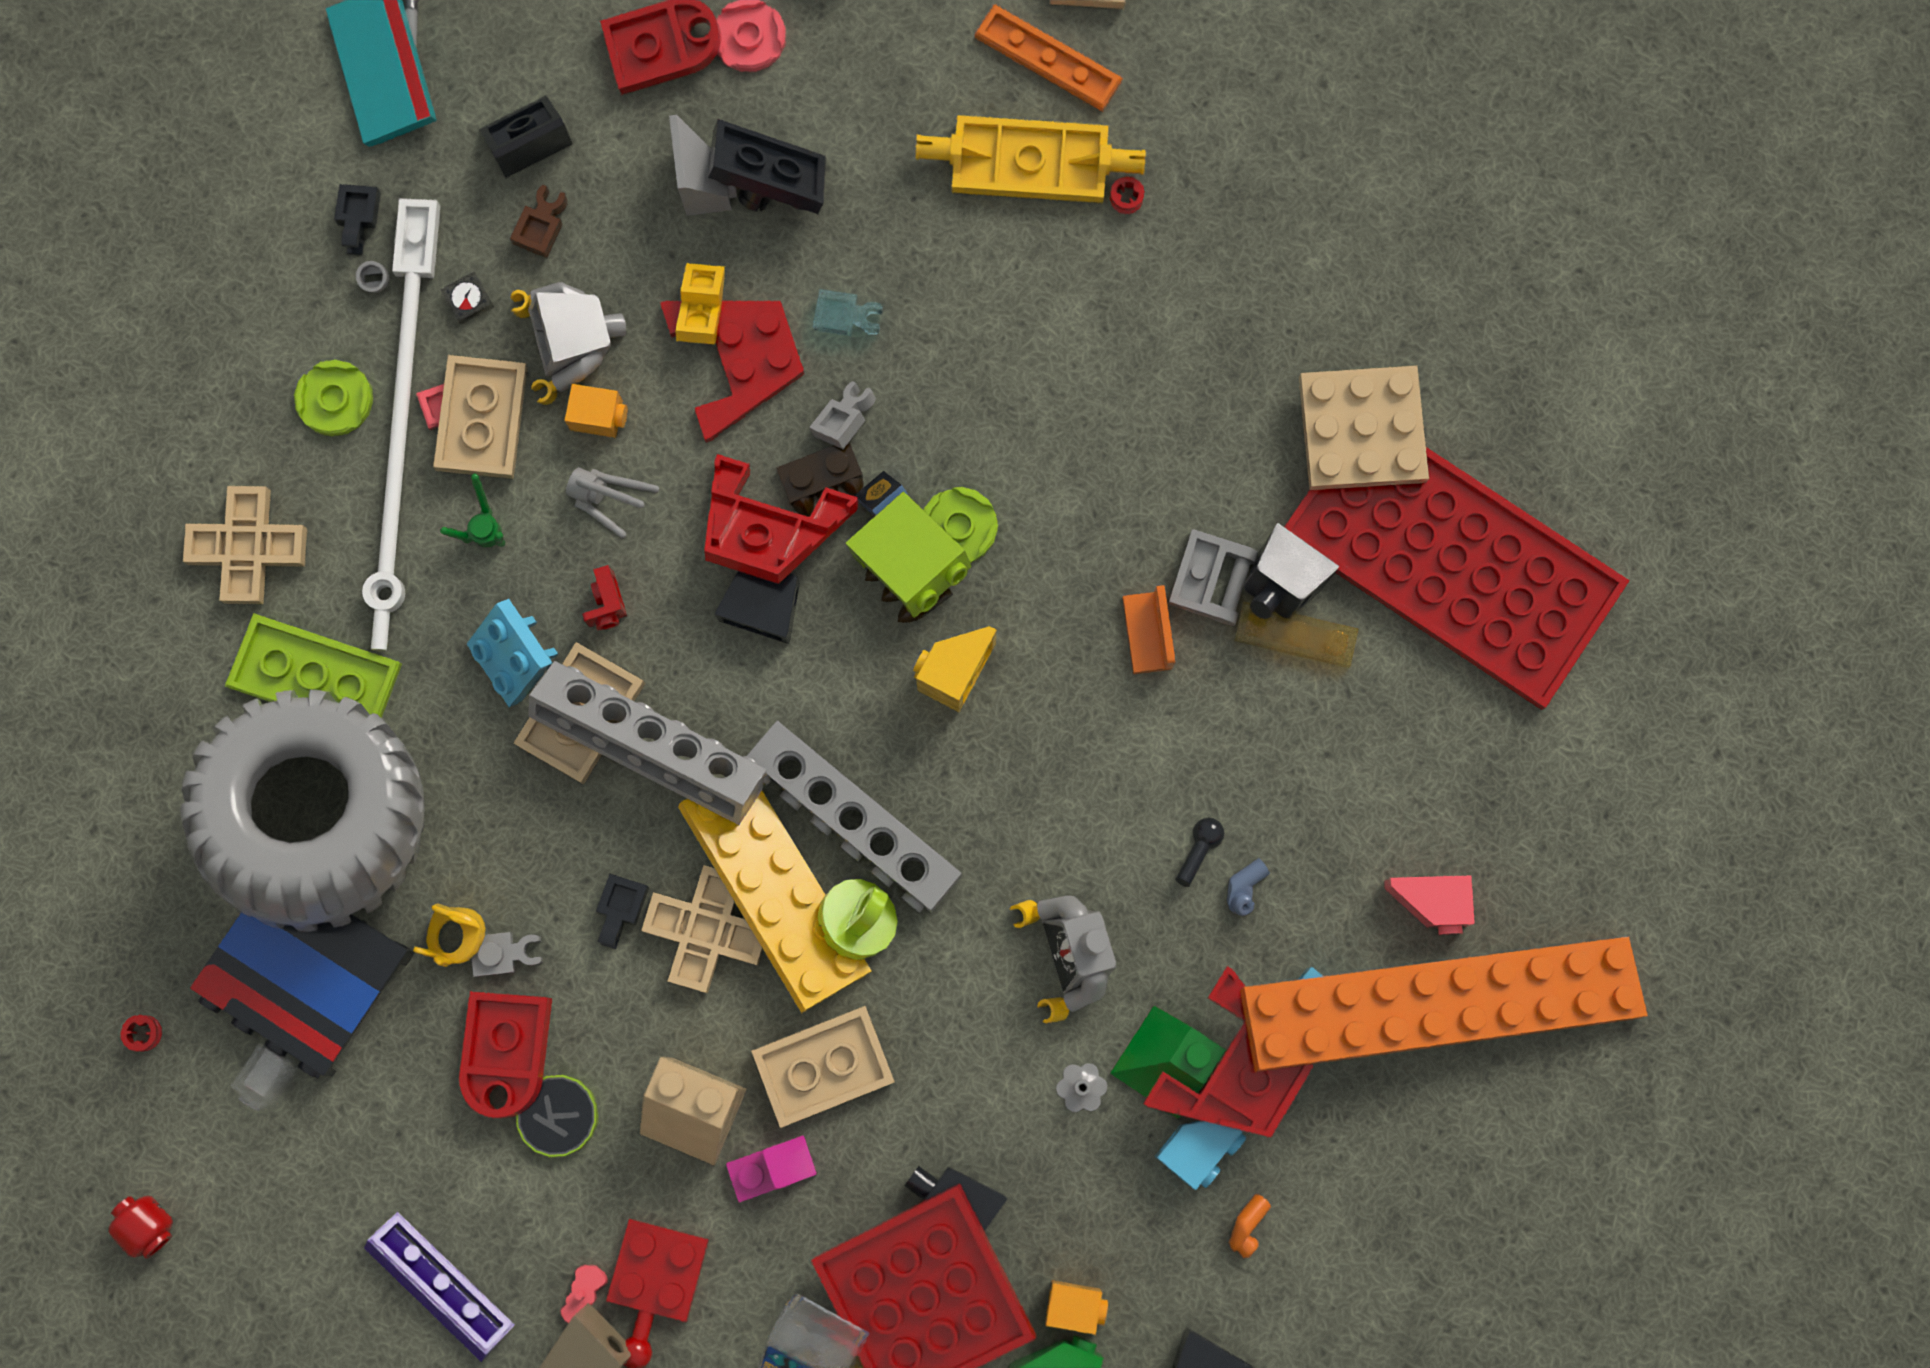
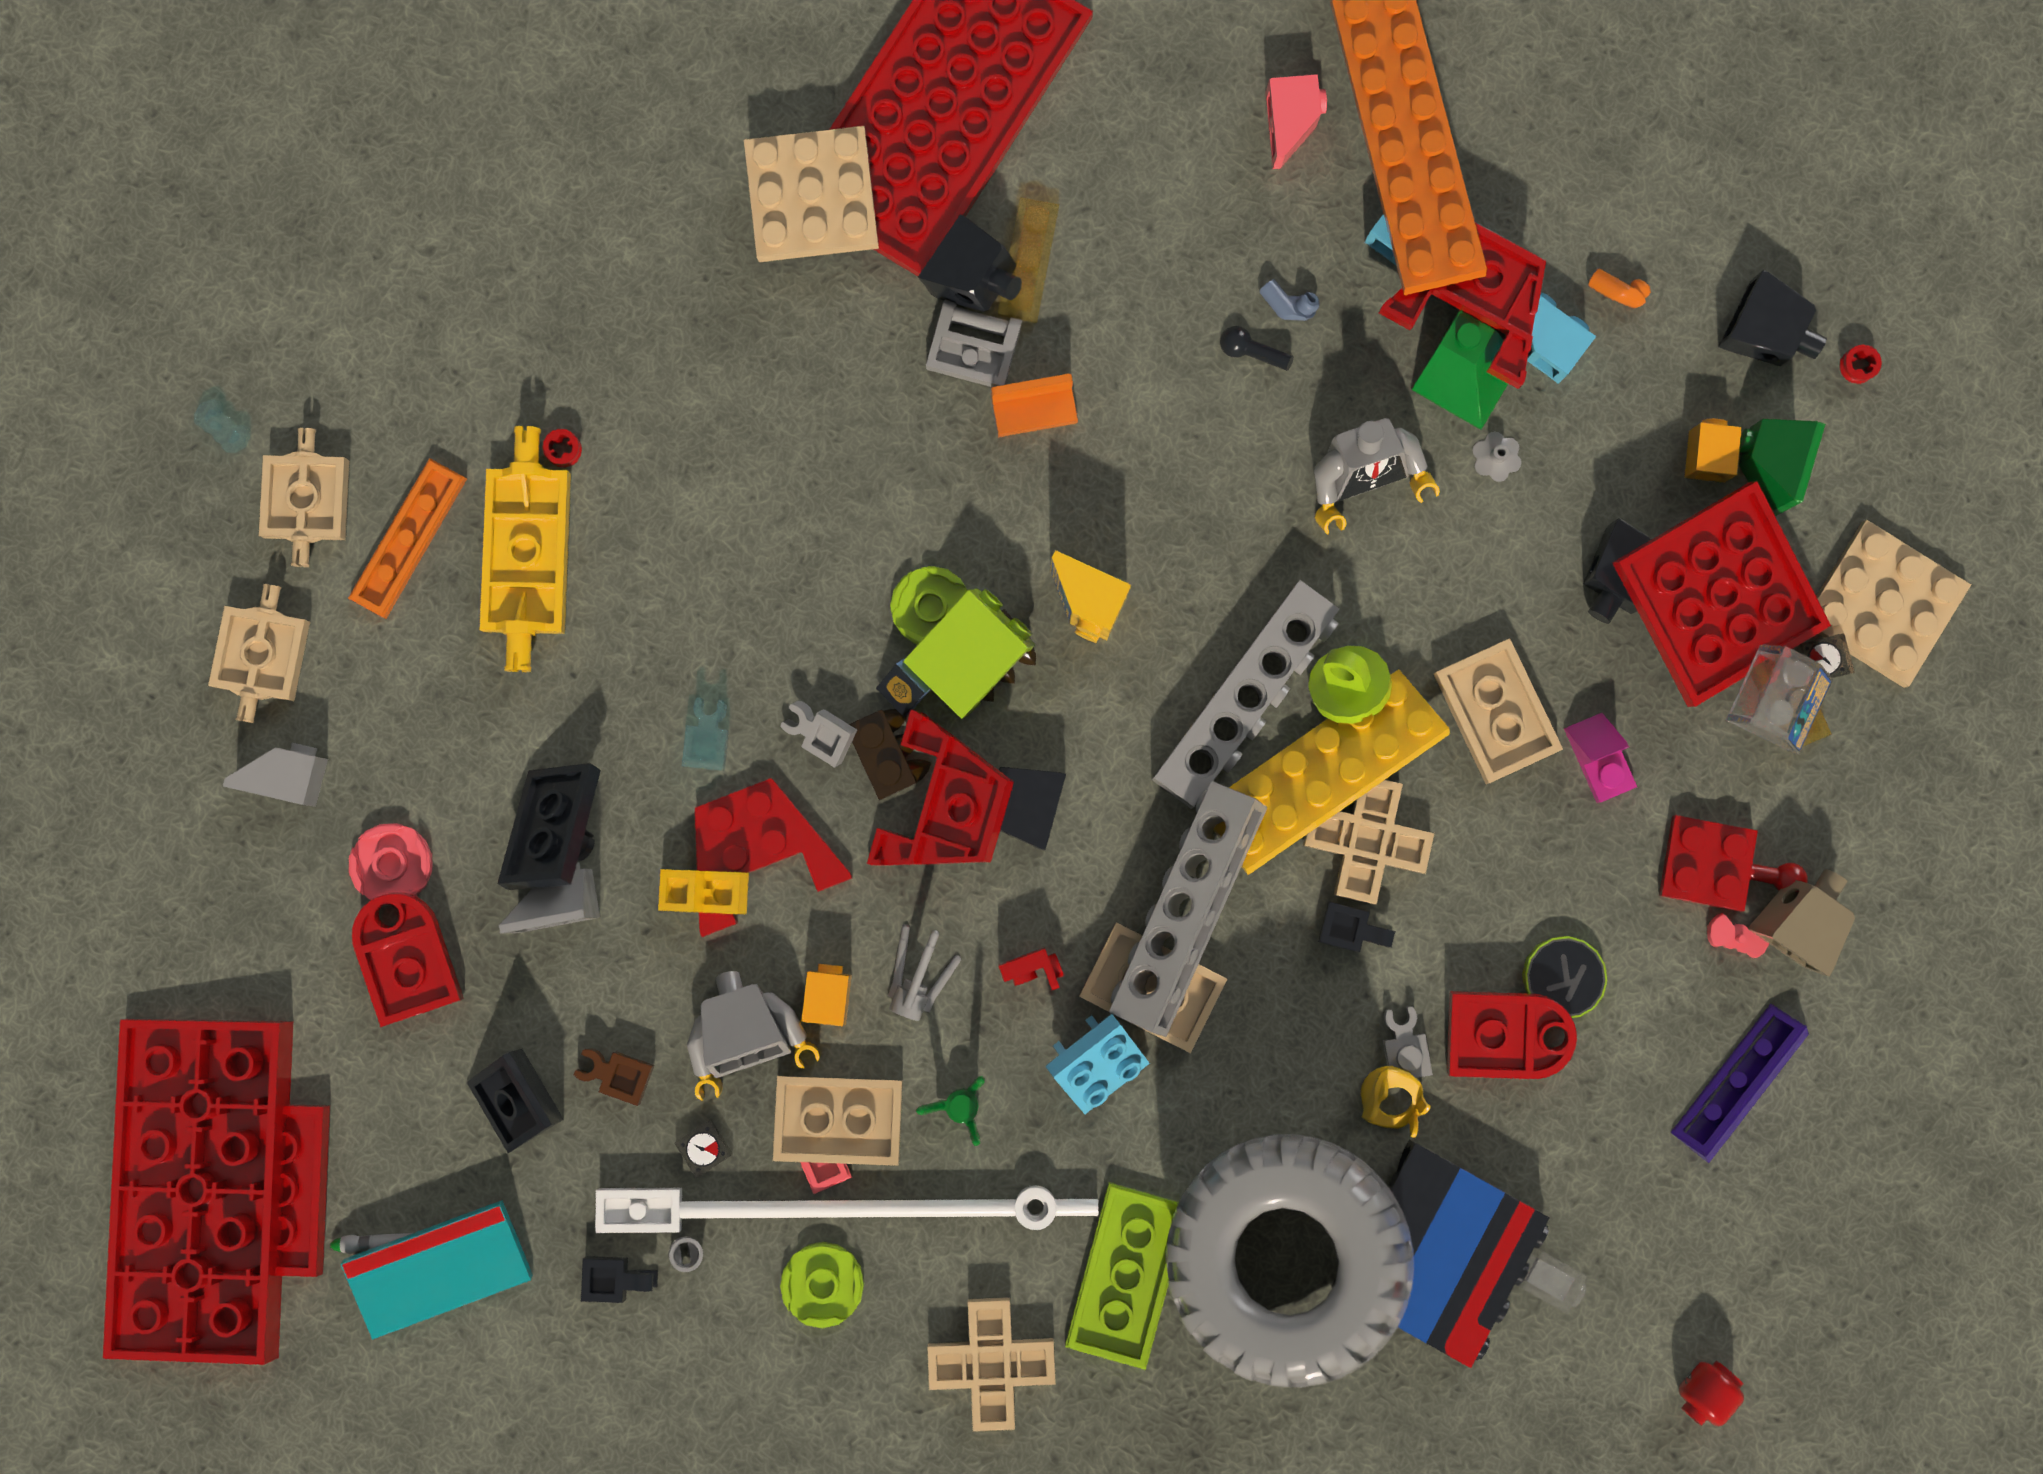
camera: 95 degrees left, 5 degrees up
(140, 1045) = (1526, 1416): red bush -> none
(689, 1109) = (1550, 835): tan slope -> none

